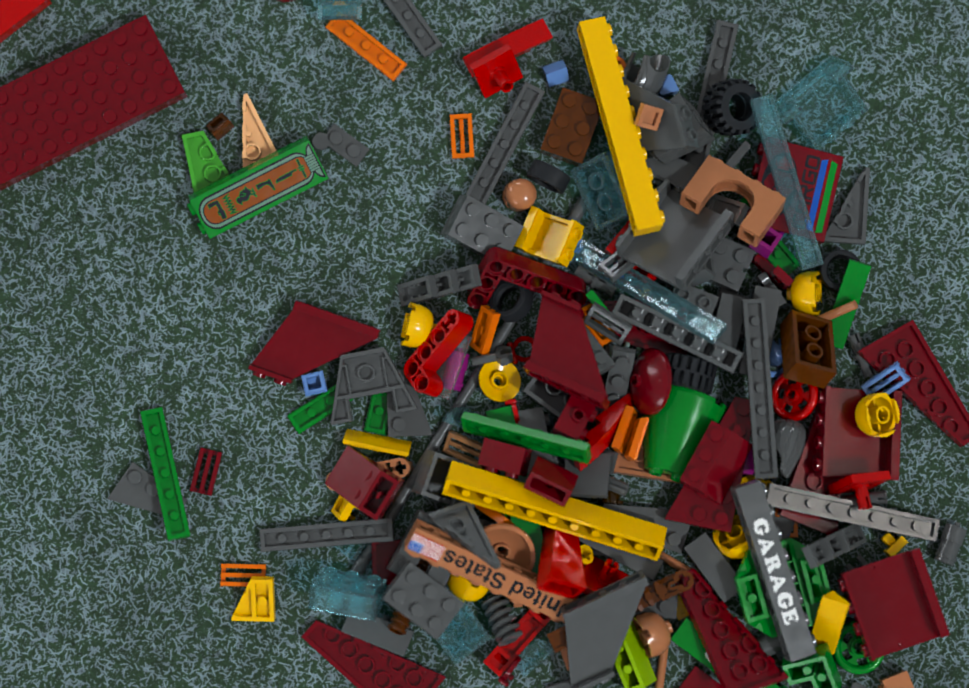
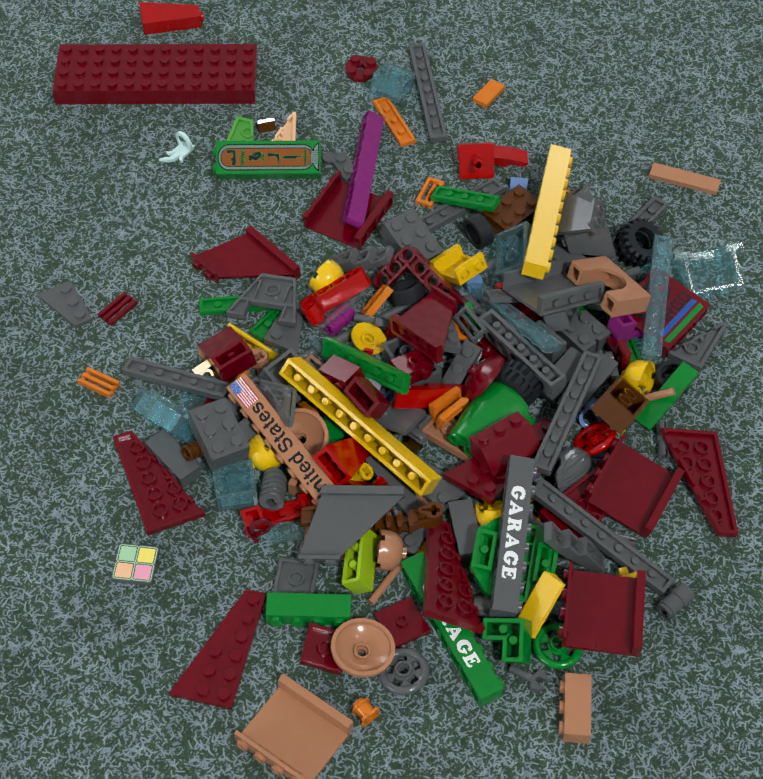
camera: 25 degrees right, 30 degrees down
(144, 214) = (181, 151): none -> light aqua piece
(165, 474) = (87, 292): green plate -> none
(257, 601) = (97, 399): yellow wing -> none
(314, 383) = (231, 286): medium blue slope -> none
(372, 144) = (363, 170): none -> magenta beam
(384, 211) = (328, 209): none -> dark red panel
(513, 137) = (465, 198): none -> green tile
(519, 195) = (451, 234): nougat helmet -> none
(648, 116) = (571, 205): nougat tile -> none
(860, 484) = (618, 514): red tile -> none
(877, 415) = (655, 472): yellow cylinder -> none
(900, 372) = (687, 445): medium blue tile -> none

